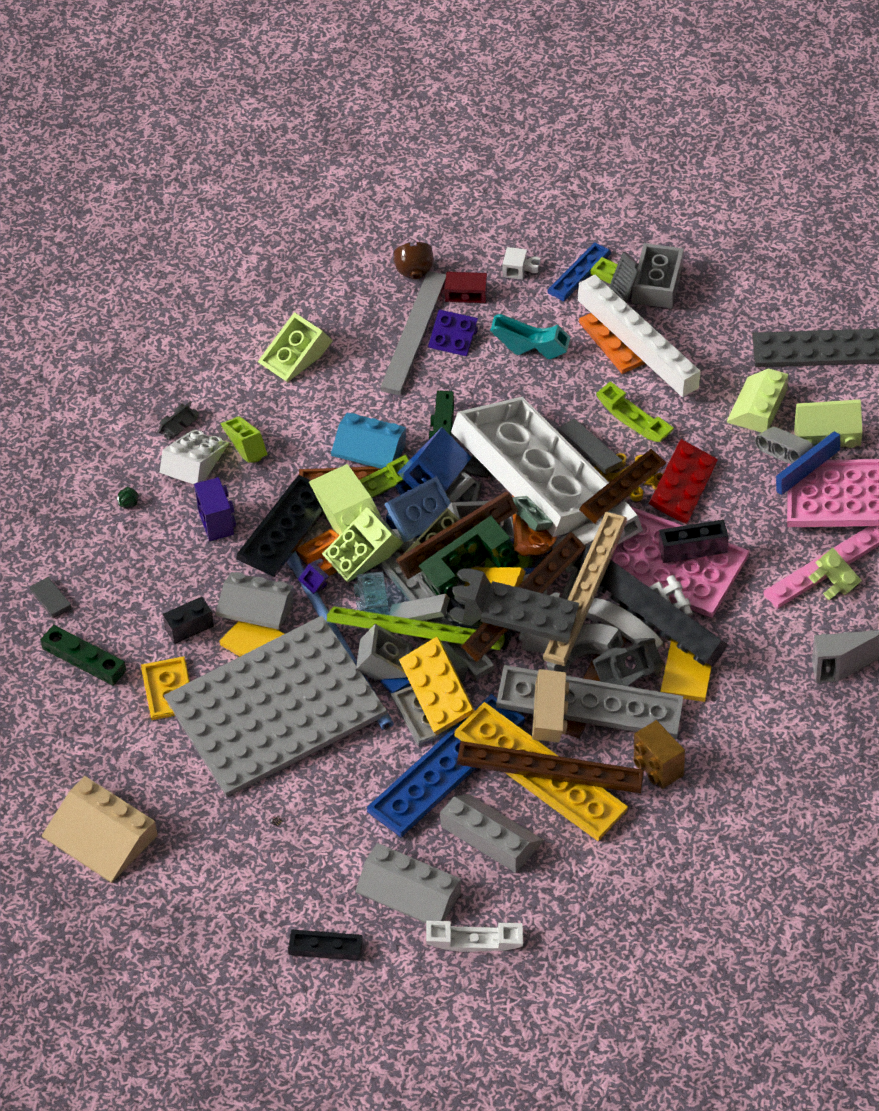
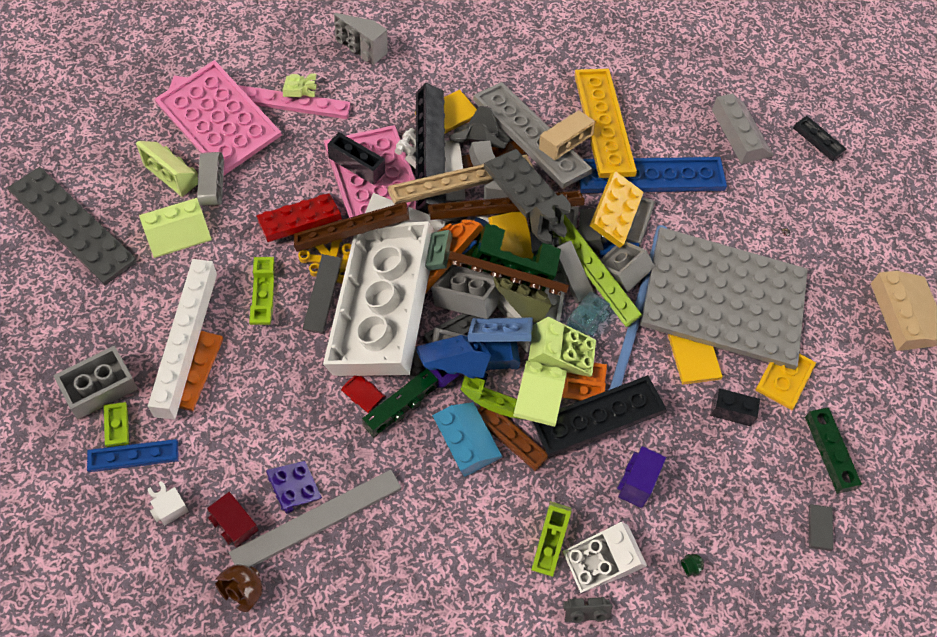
camera: 145 degrees left, 10 degrees up
(255, 600) = (676, 376): light grey slope -> none
(295, 348) = (426, 590): yellowish green slope -> none
(314, 577) = (618, 361): dark purple panel -> none
(474, 939) = (713, 68): white slope -> none
(489, 831) = (664, 119): light grey slope -> none
(523, 337) = (251, 414): teal arch -> none
(550, 767) = (601, 113): reddish brown tile -> none
(624, 276) = (128, 392): dark grey window -> none
(658, 755) = (531, 71): pearl gold brick -> none
(808, 463) = (228, 148): blue tile -> none

